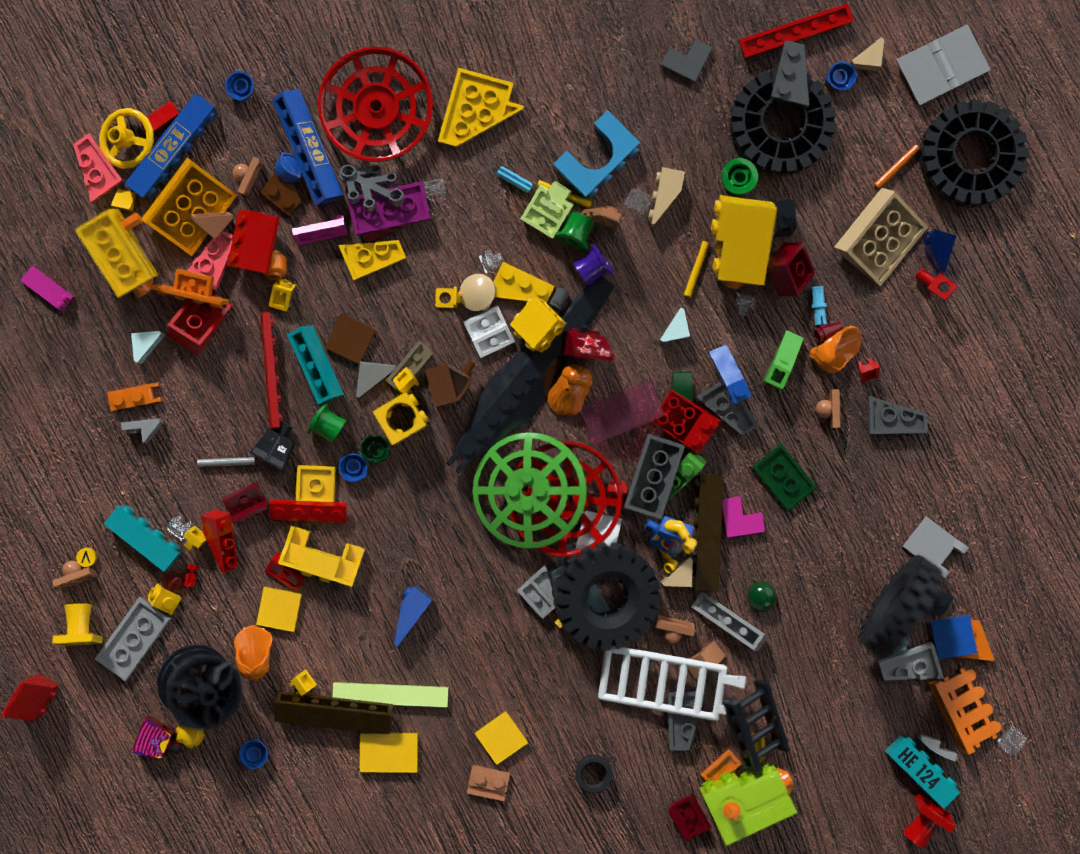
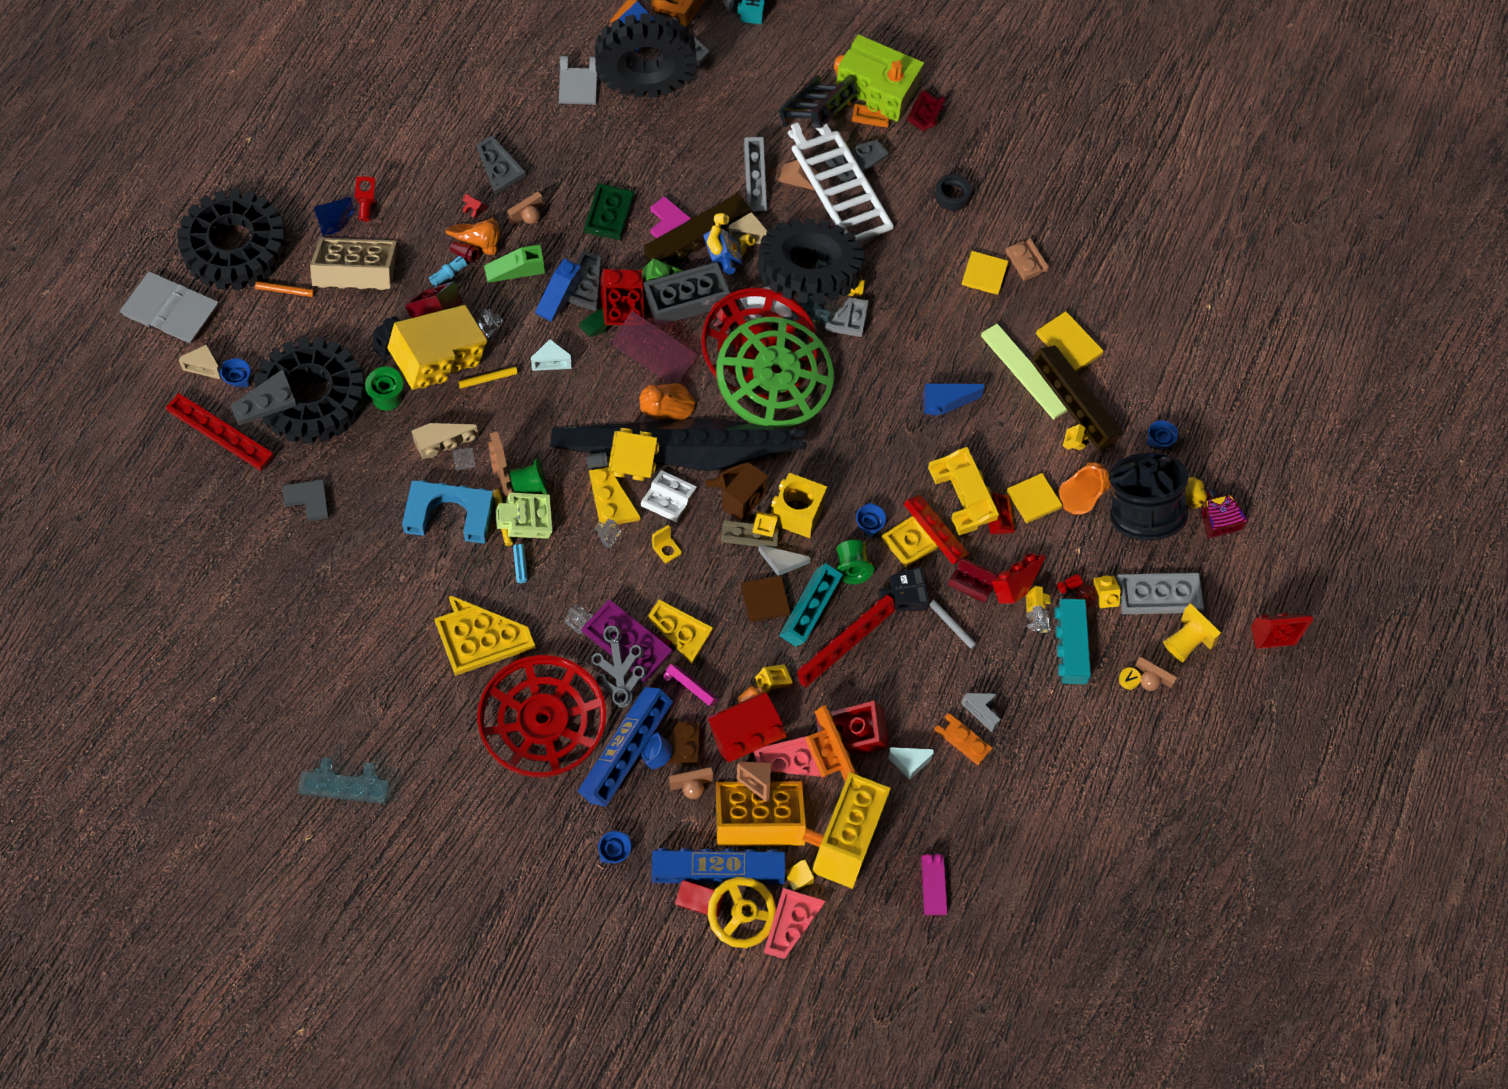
camera: 130 degrees left, 25 degrees down
(375, 449) = (841, 511): dark green hair -> none
(477, 292) = (642, 523): tan dish -> none
(586, 345) = (622, 400): dark red slope -> none
(592, 266) = (548, 448): dark purple piece -> none
(674, 628) = (792, 207): nougat tile -> none
(762, 596) = (716, 167): dark green hair -> none

